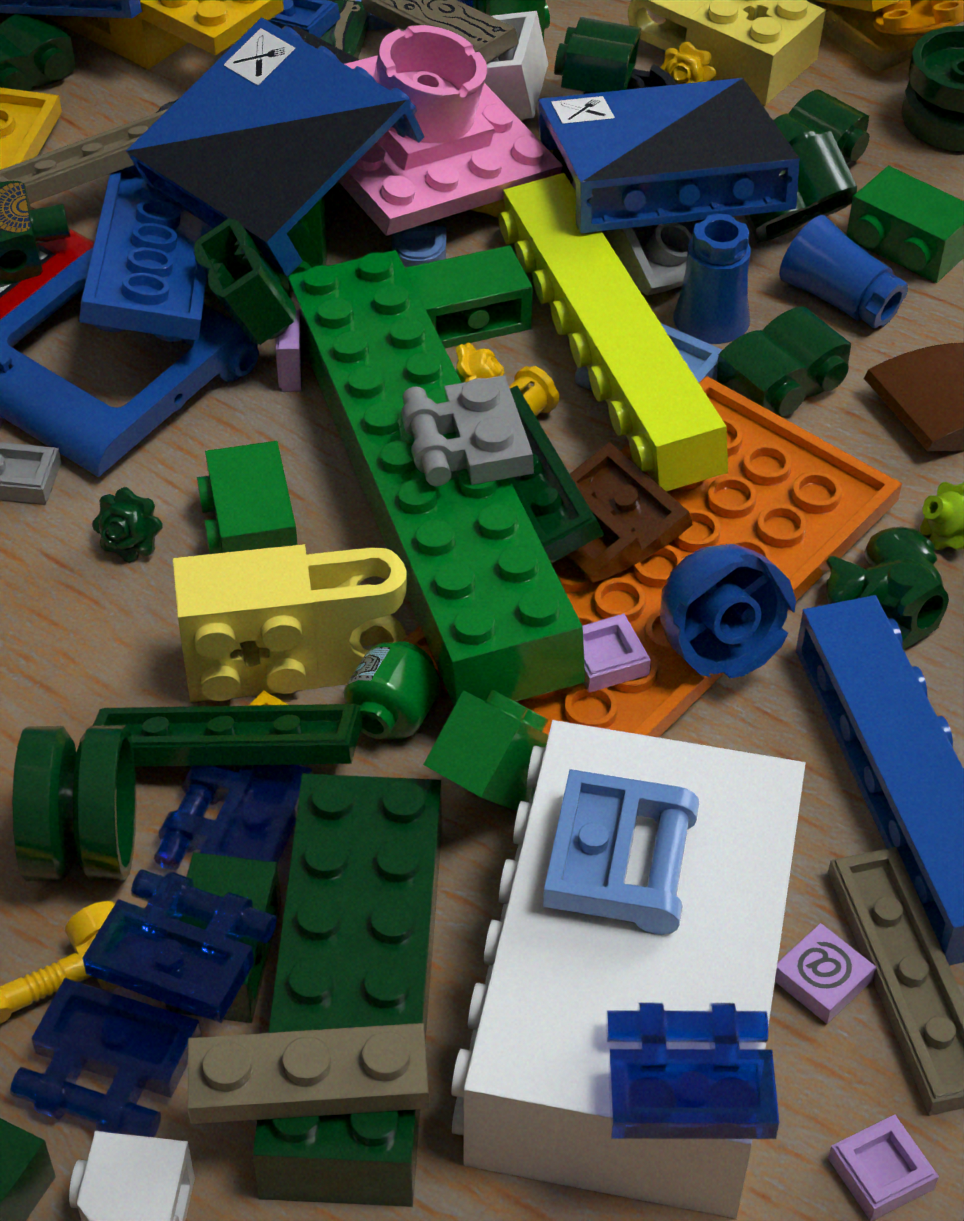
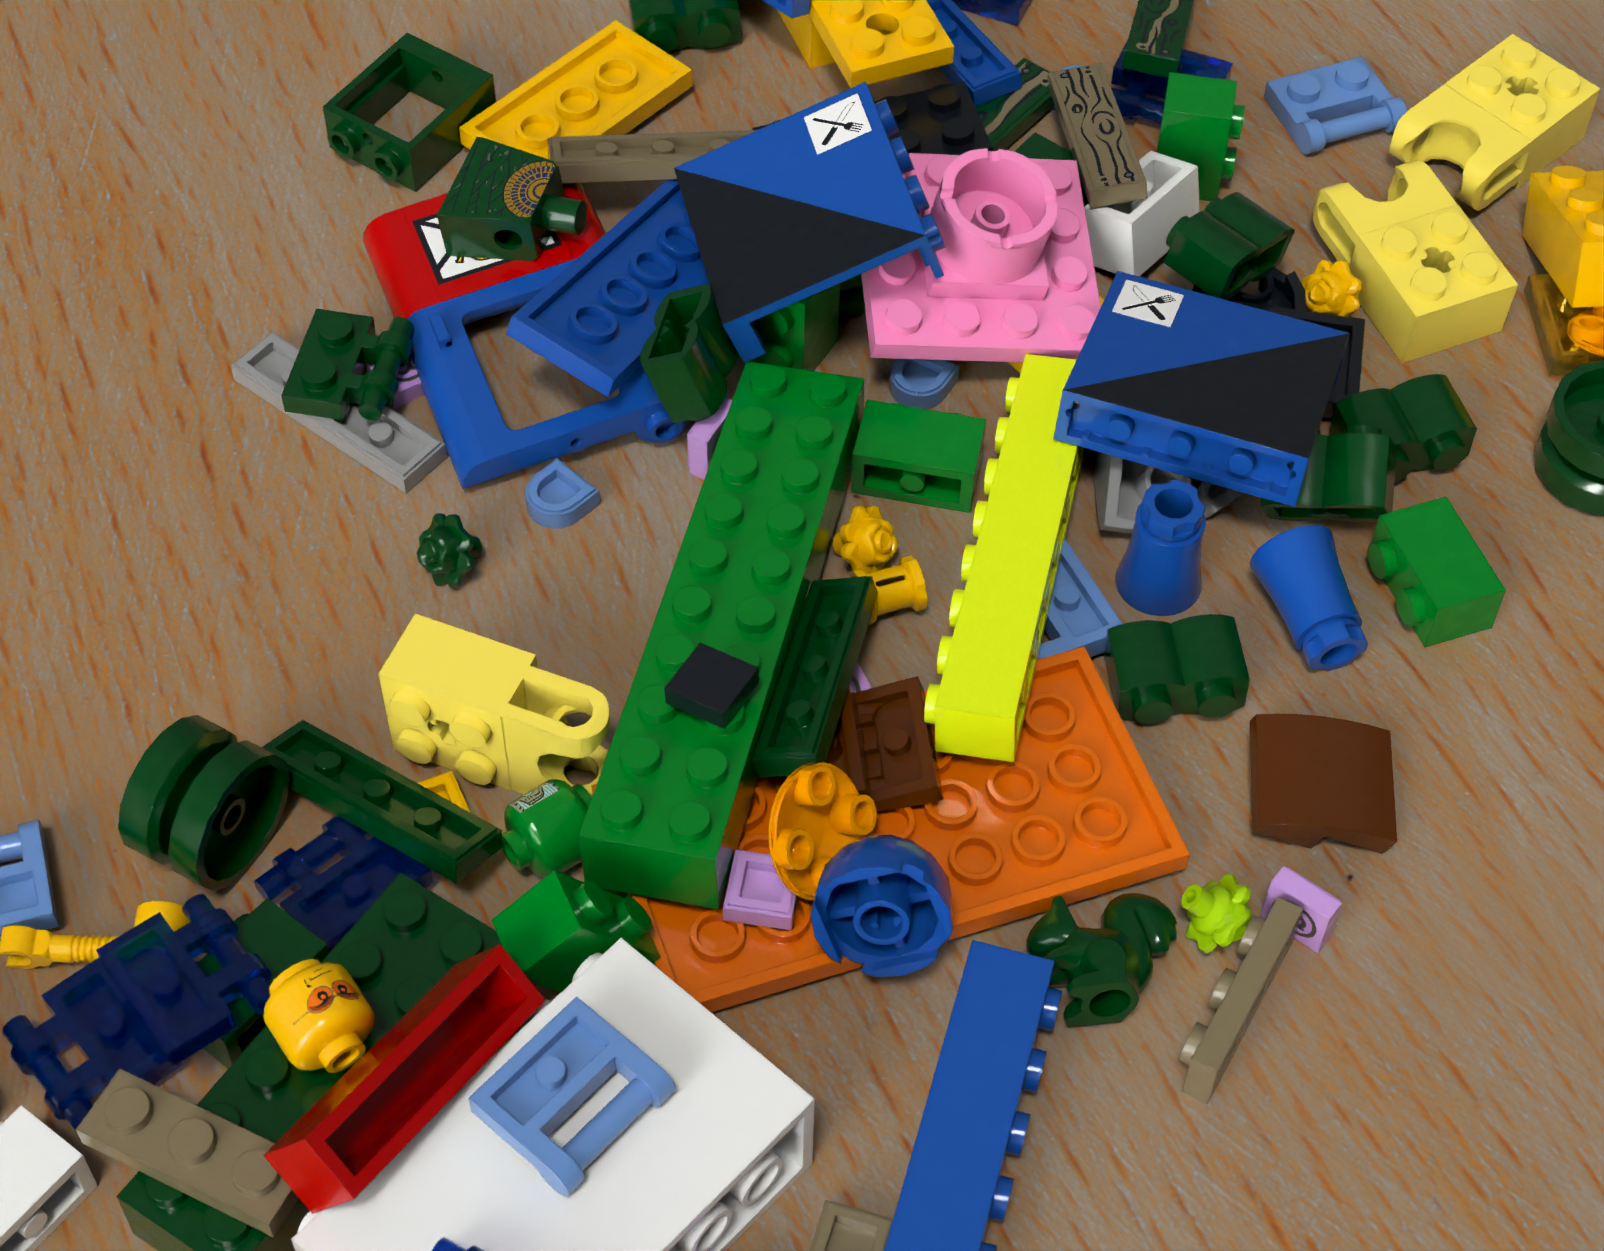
camera: 30 degrees right, 5 degrees up
(183, 447) = (559, 496): none -> medium blue tile
(248, 499) = (560, 586): green brick -> none
(344, 902) = (318, 1016): none -> yellow head
(464, 915) = (404, 1080): none -> red brick
(477, 499) = (712, 685): none -> black tile
(486, 427) = (778, 614): light grey plate -> none
(628, 578) = (812, 821): none -> light orange dish

